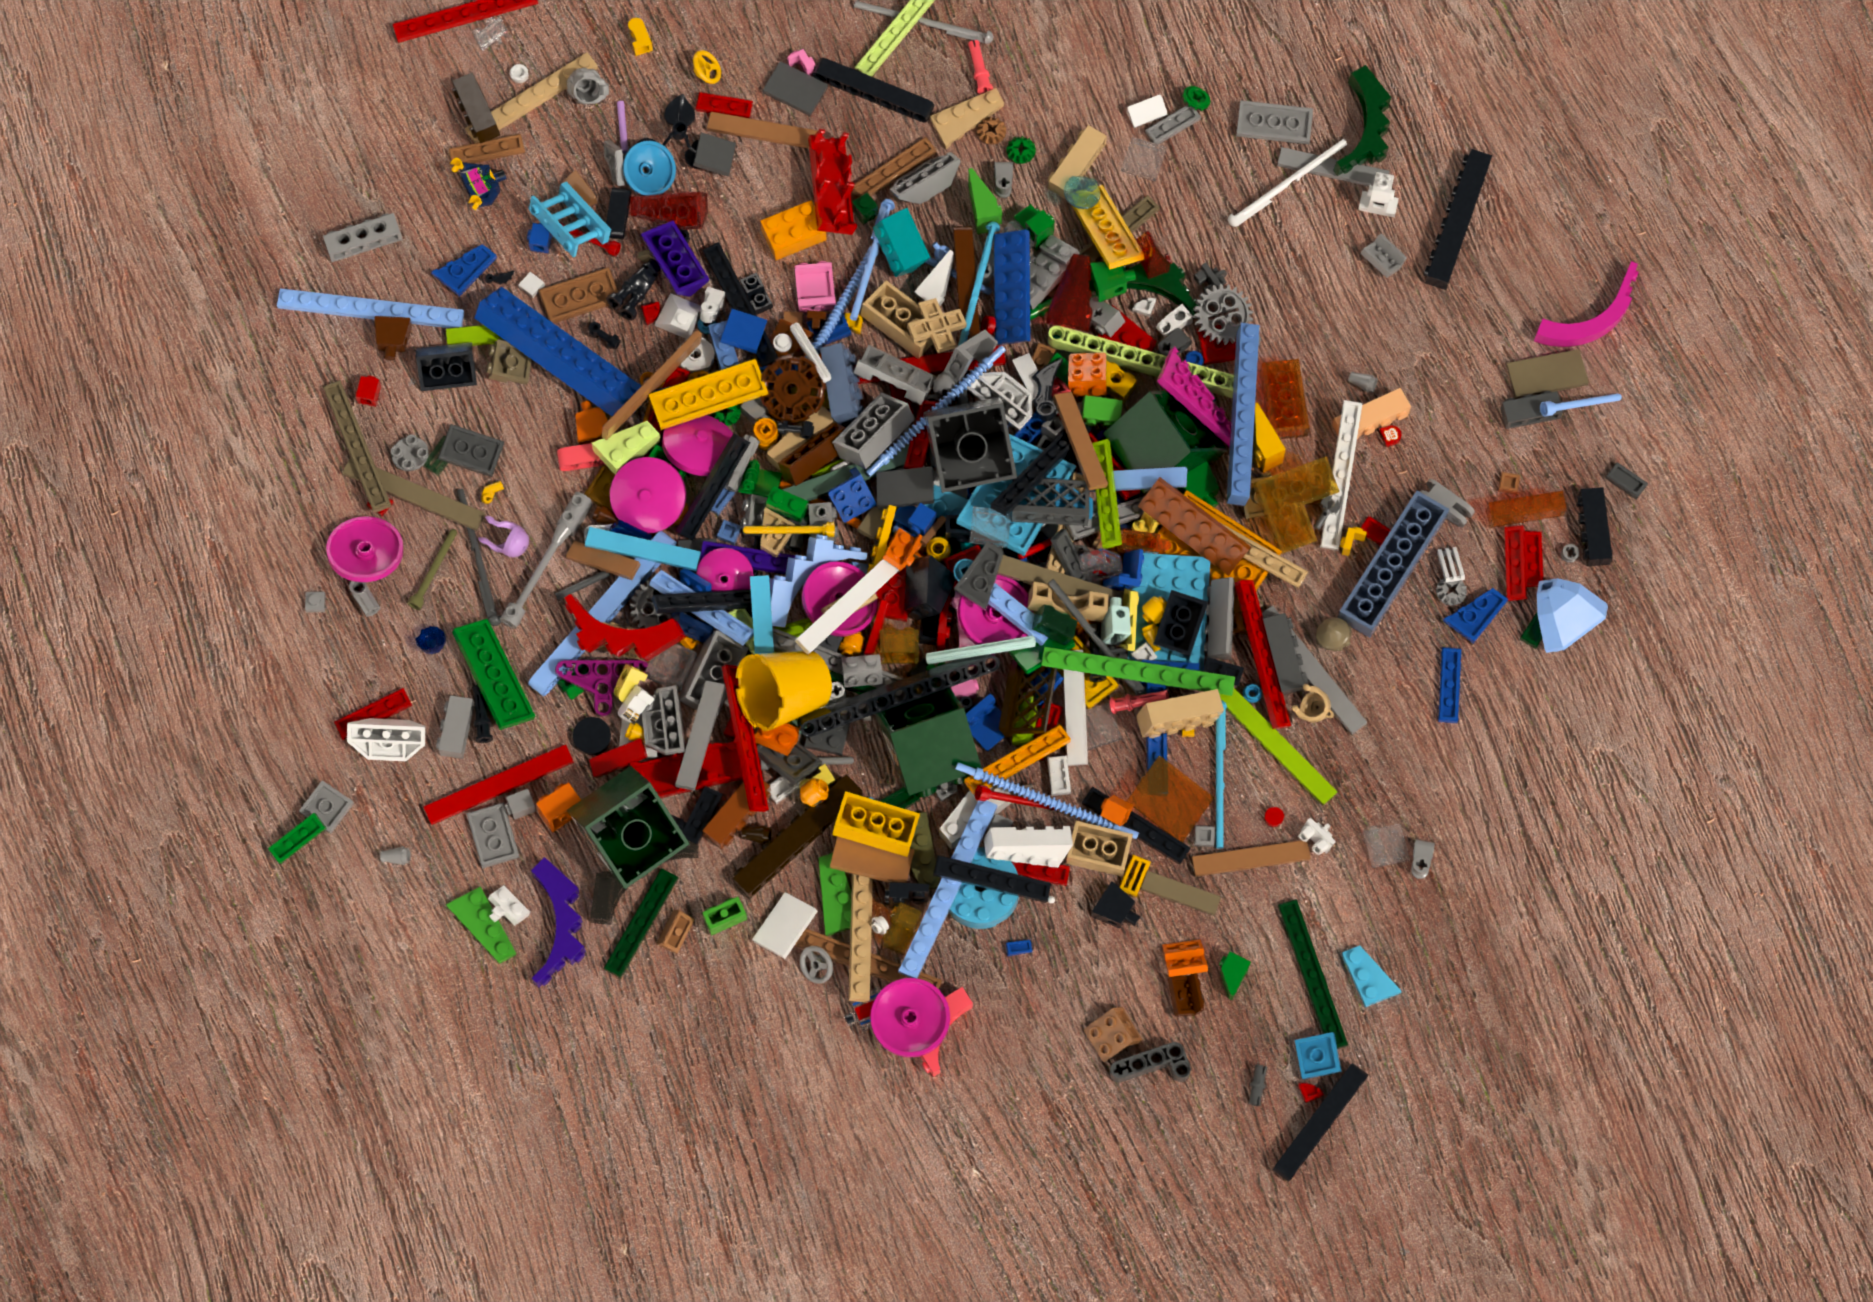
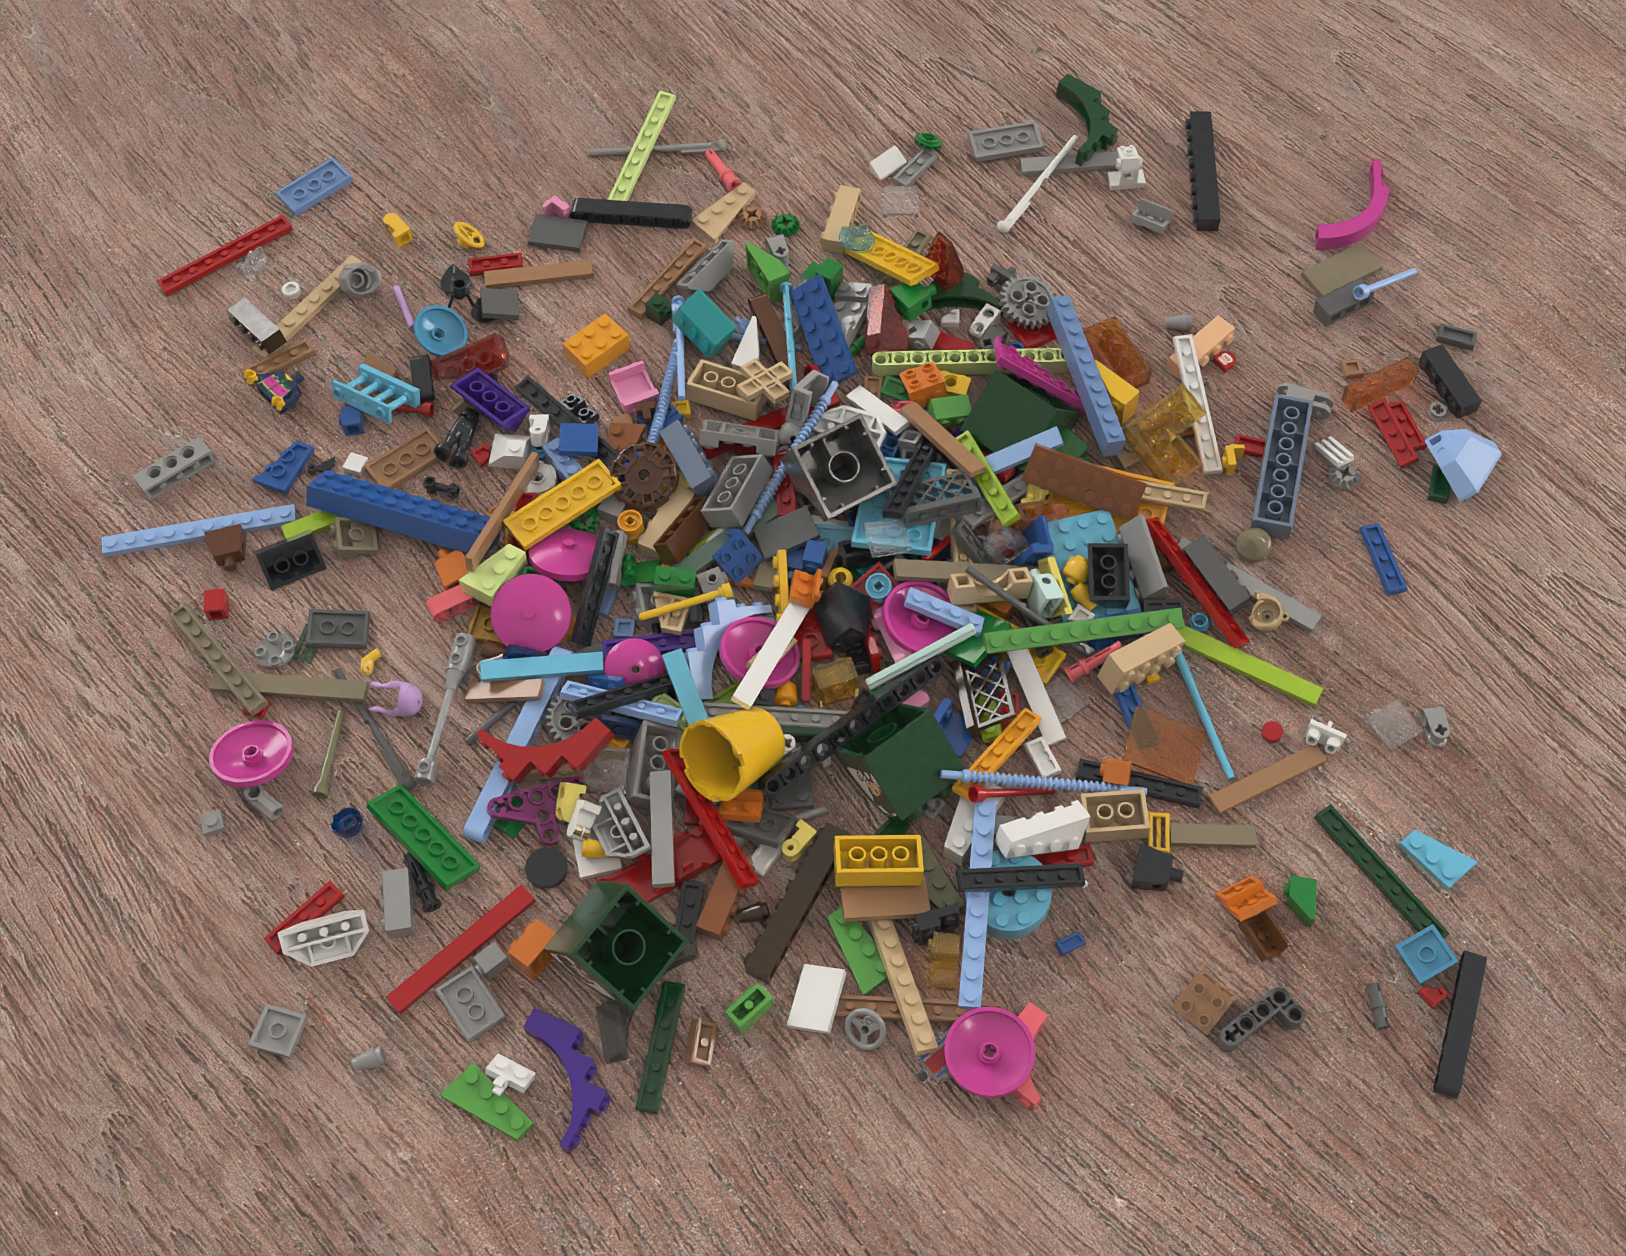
camera: 15 degrees left, 10 degrees down
(297, 838) = (253, 1074): green plate -> none
(614, 158) = (404, 333): light grey tile -> none
(618, 758) = (581, 880): red tile -> none
(782, 342) = (619, 440): white plate -> none
(805, 430) = (670, 510): black bar -> none
(810, 351) = (649, 436): white axle -> none
(814, 792) = (800, 849): light orange head -> none
(832, 183) = (620, 294): red piece -> none
(862, 670) = (807, 715): light grey bracket -> none
(879, 925) = (918, 965): white plate -> none
(981, 576) = (897, 584): dark grey wing -> none
(1045, 380) = (891, 416): black piece -> none
(1054, 624) = (985, 610): clear green brick -> none
(1204, 836) = (1211, 772): light grey tile -> none
(1325, 513) = (1198, 438): dark grey bar -> none
(1476, 616) = (1379, 490): blue wing -> none

